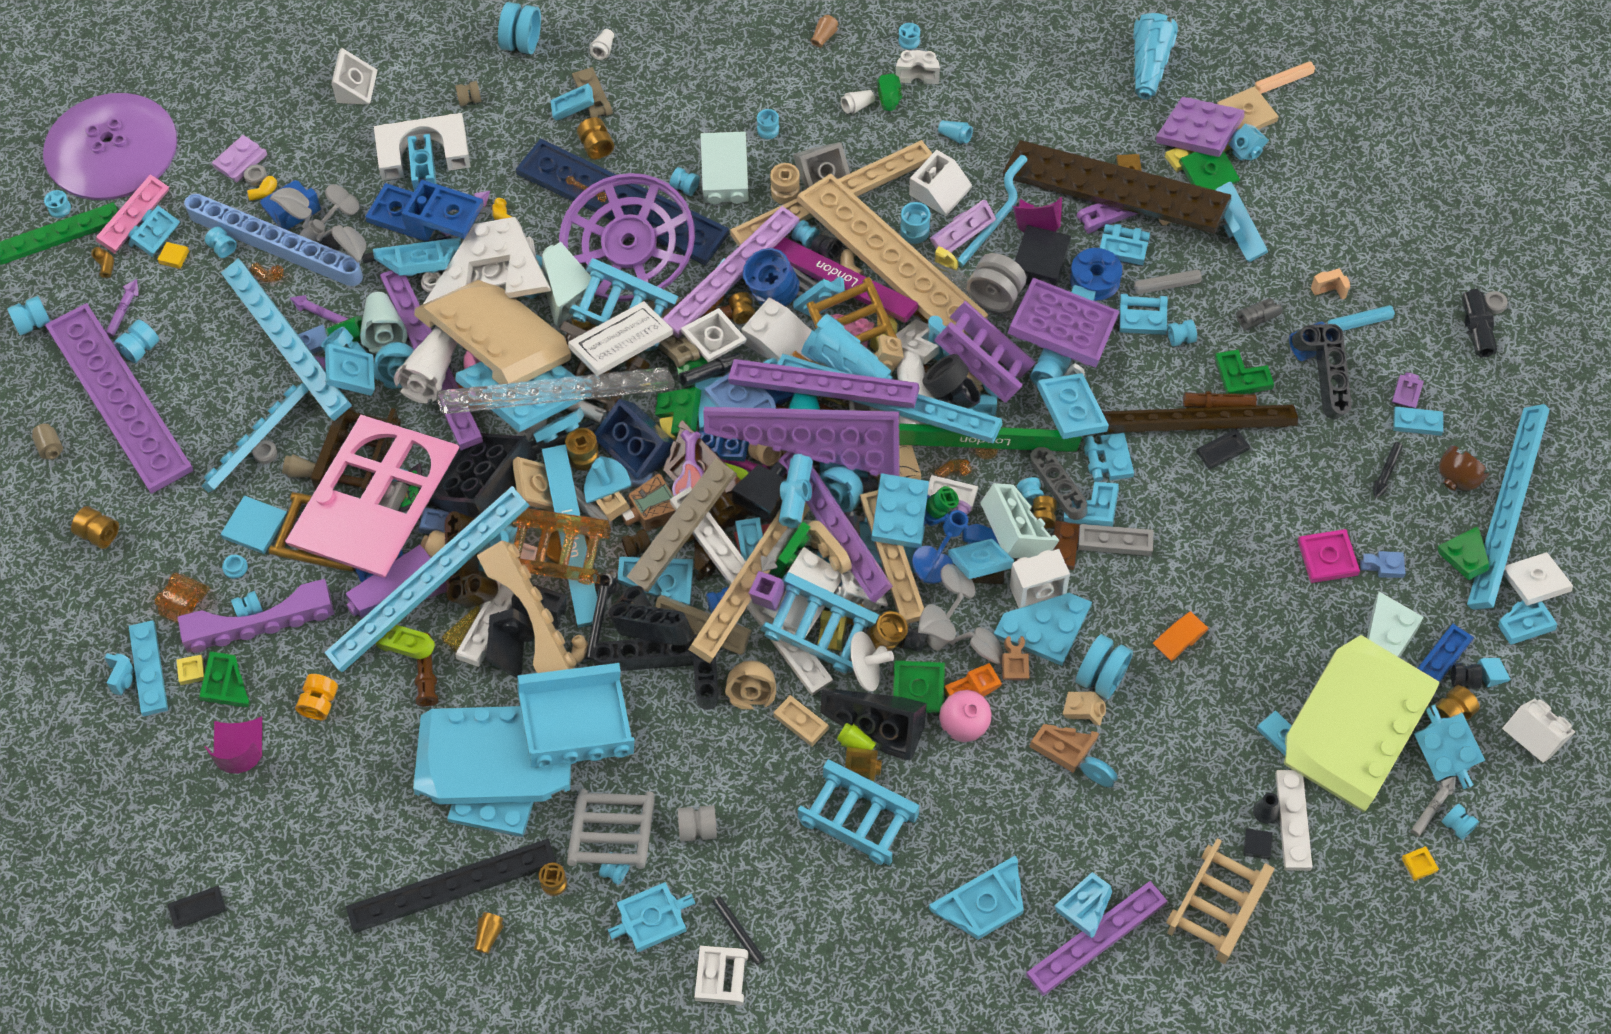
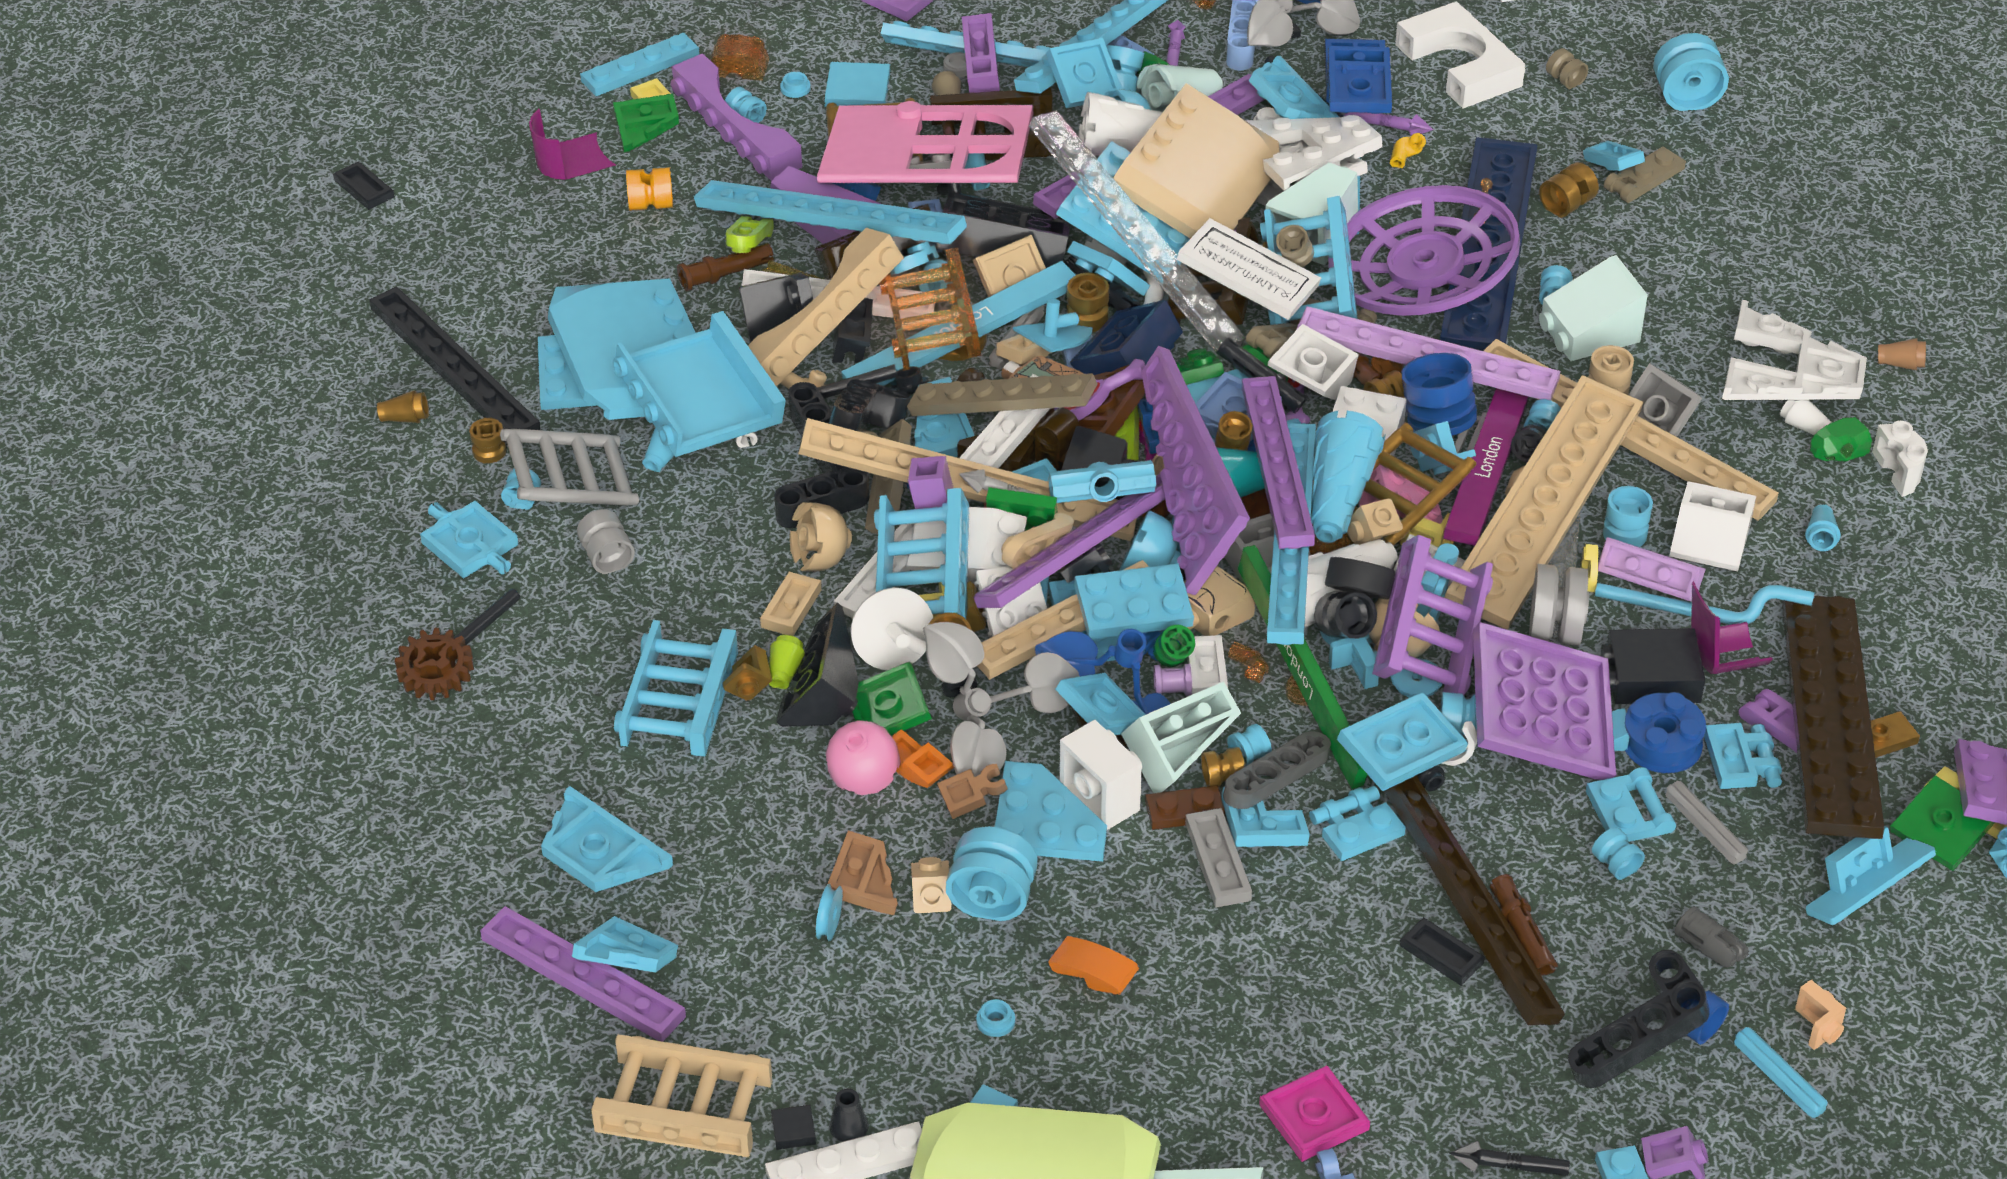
camera: 70 degrees right, 15 degrees down
(122, 673) = (619, 42): medium azure bracket -> none
(284, 431) = (980, 53): none -> medium lavender slope
(421, 161) = (1432, 60): medium azure piece -> none
(601, 46) = (1728, 159): white cone -> none
(611, 766) = (657, 454): none -> medium azure cone
(615, 299) = (1295, 245): none -> dark tan wheel
(712, 974) = (408, 612): white plate -> none
(768, 124) = (1701, 344): medium azure wheel -> none
(772, 958) = (434, 664): none -> reddish brown gear
(779, 398) = (1234, 431): none -> pearl gold wheel
(823, 71) = (1820, 368): none -> white wing
(905, 32) = (1958, 439): medium azure wheel -> none
(1206, 697) = (995, 1009): none -> medium azure plate
(1241, 380) = (1578, 938): green plate -> none

